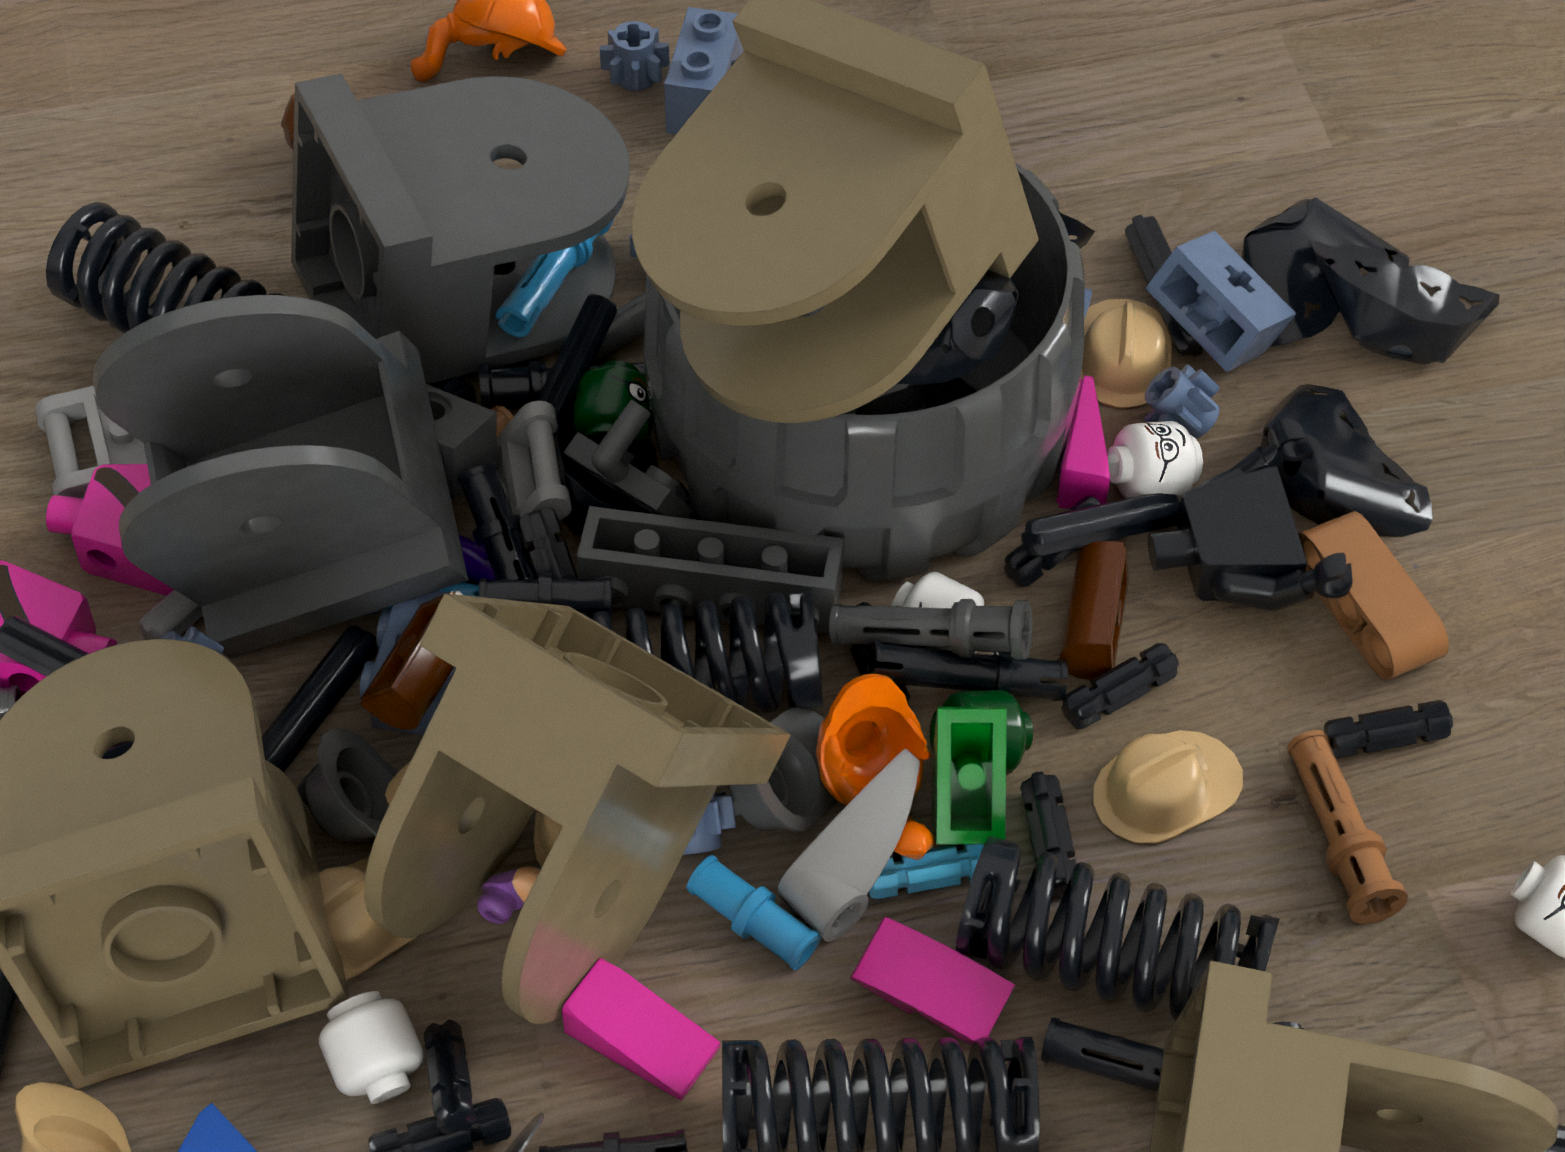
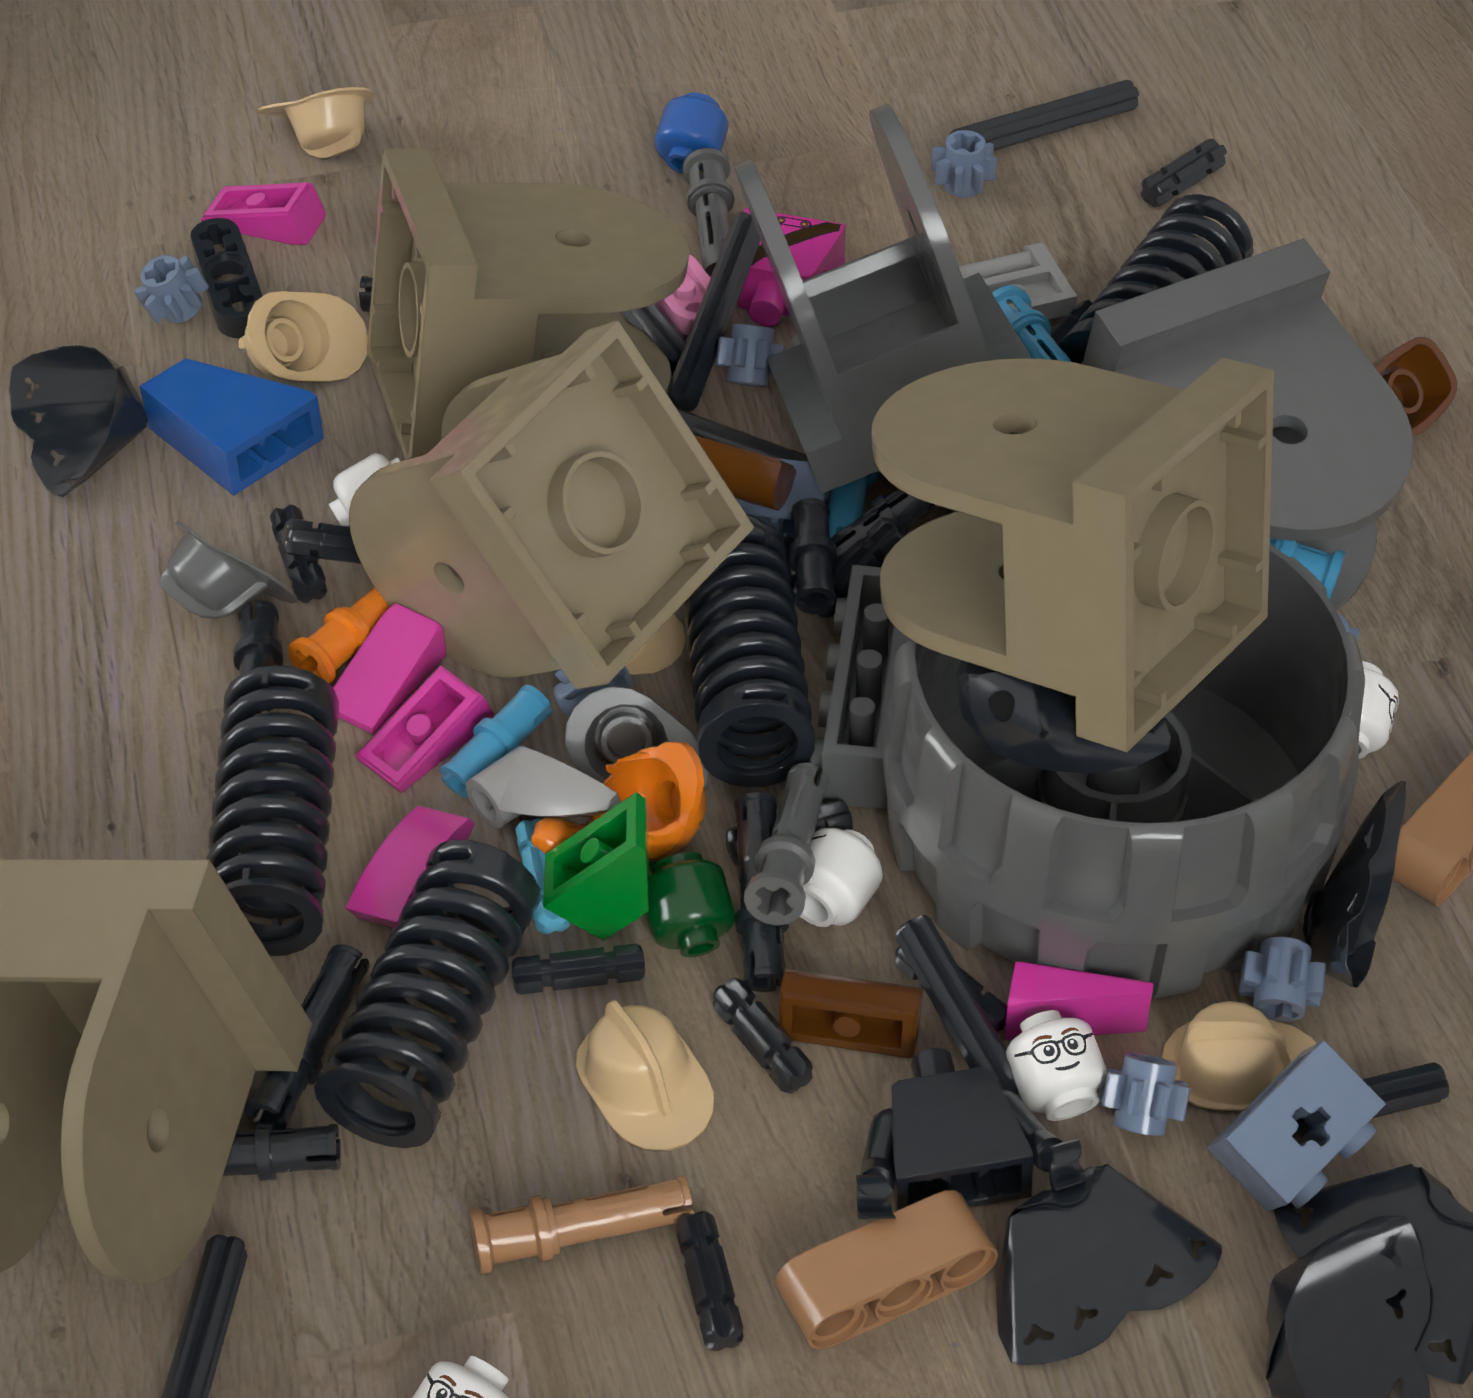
camera: 90 degrees right, 5 degrees down
(579, 1064) = (339, 637): none -> orange pin
(727, 985) = (425, 730): none -> dark pink slope

